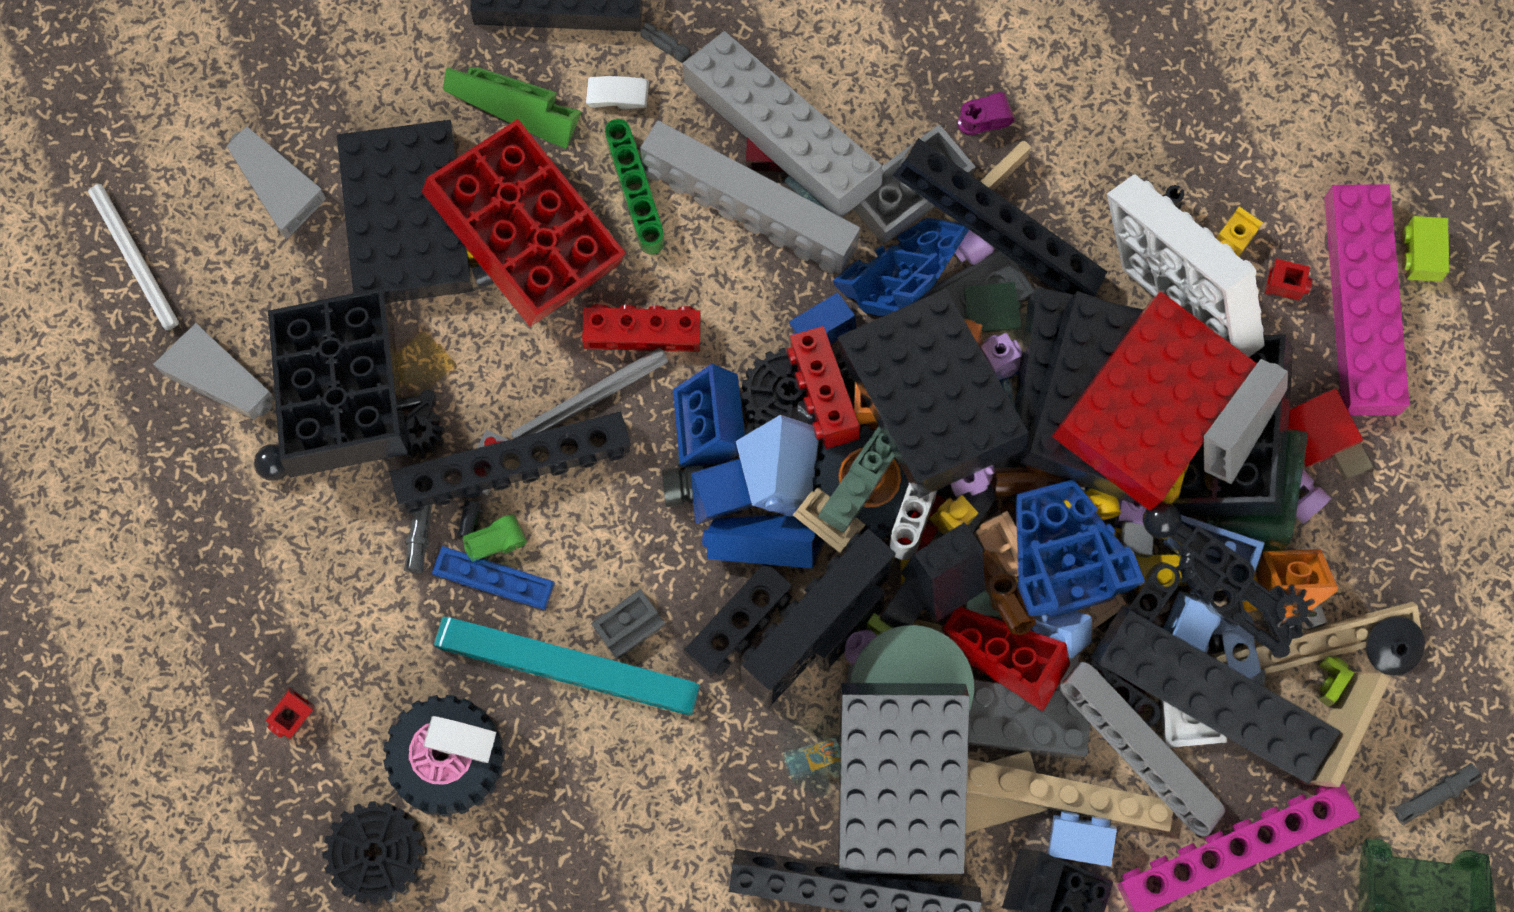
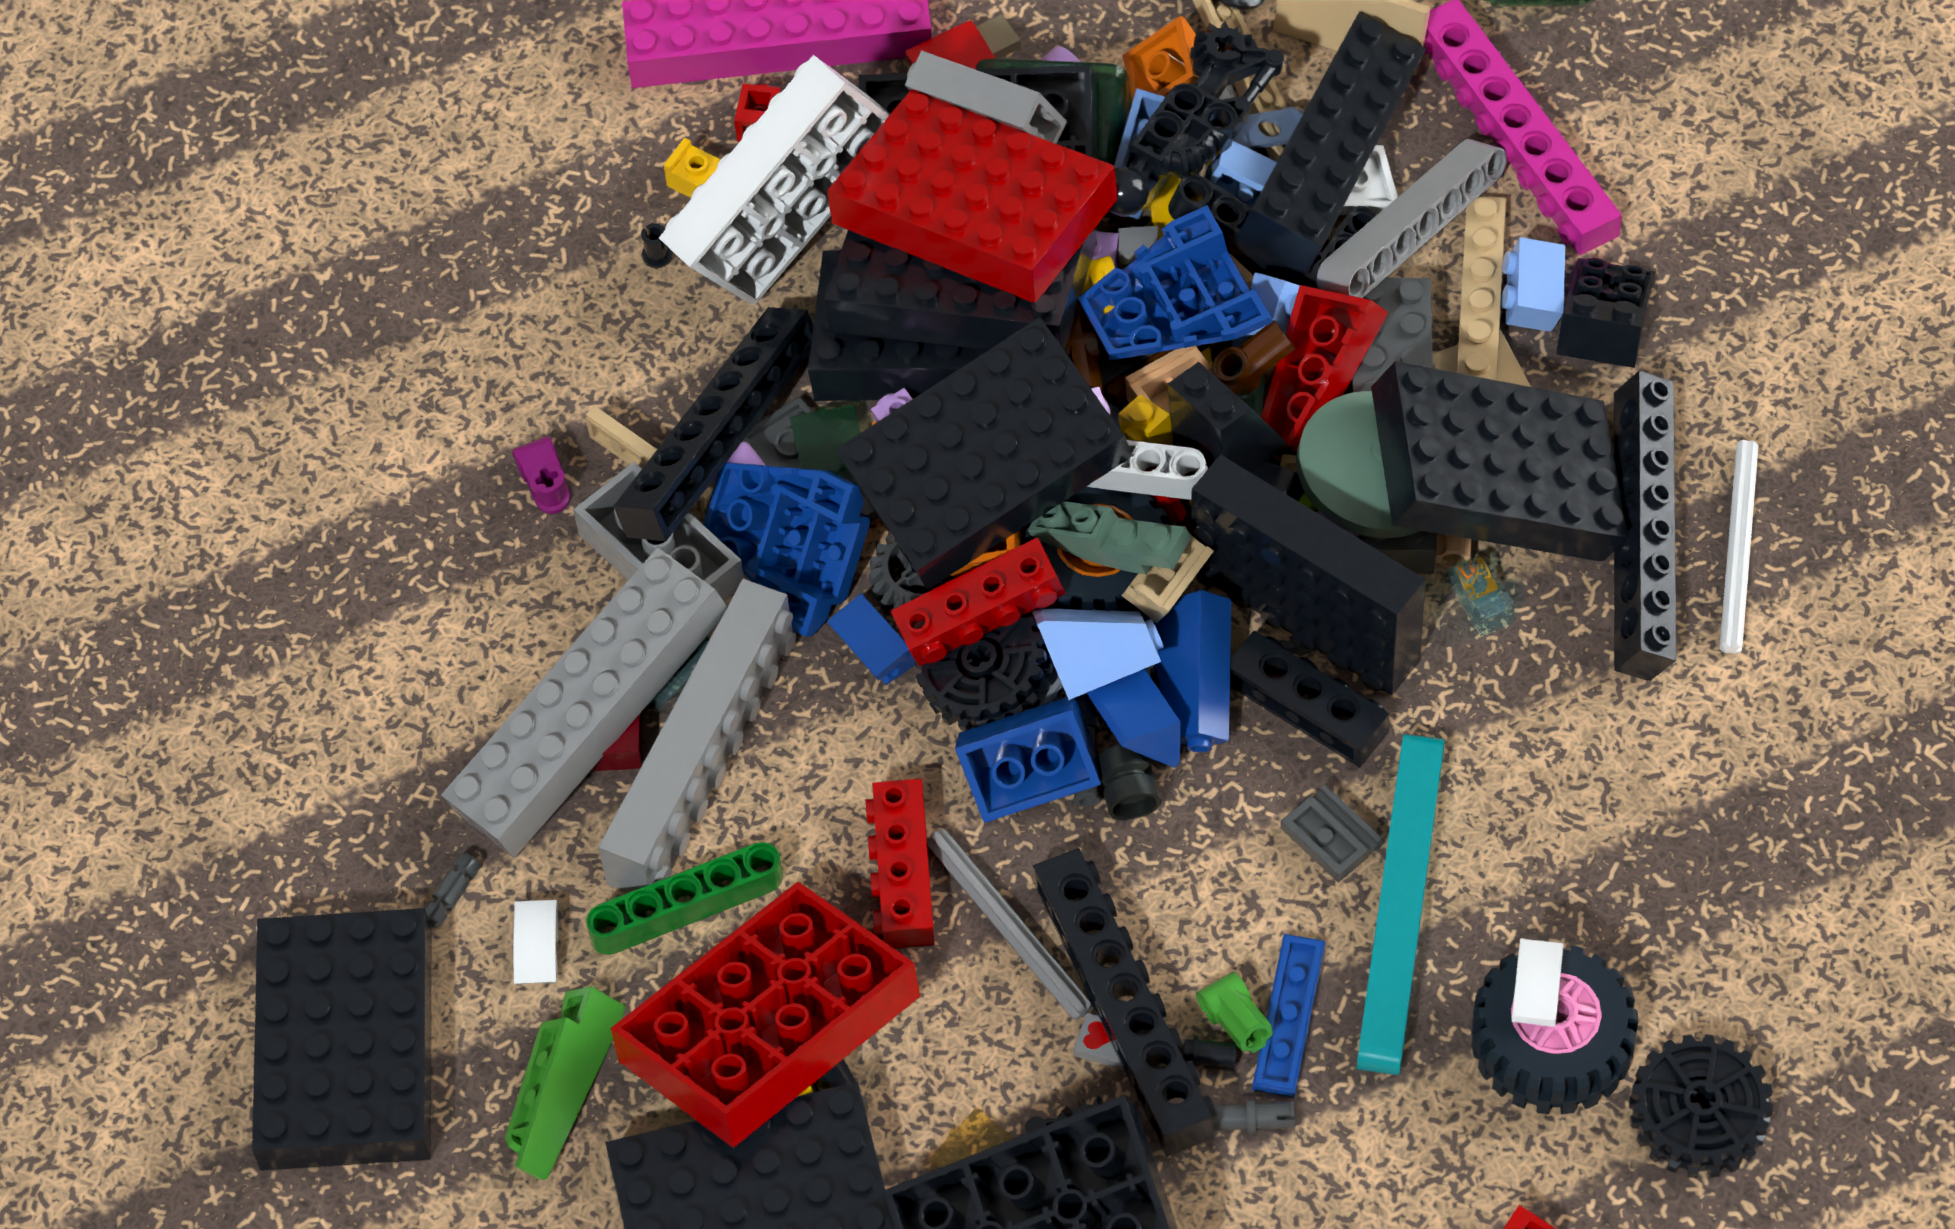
camera: 90 degrees left, 15 degrees down
(1334, 686) = (1290, 35): lime bracket -> none

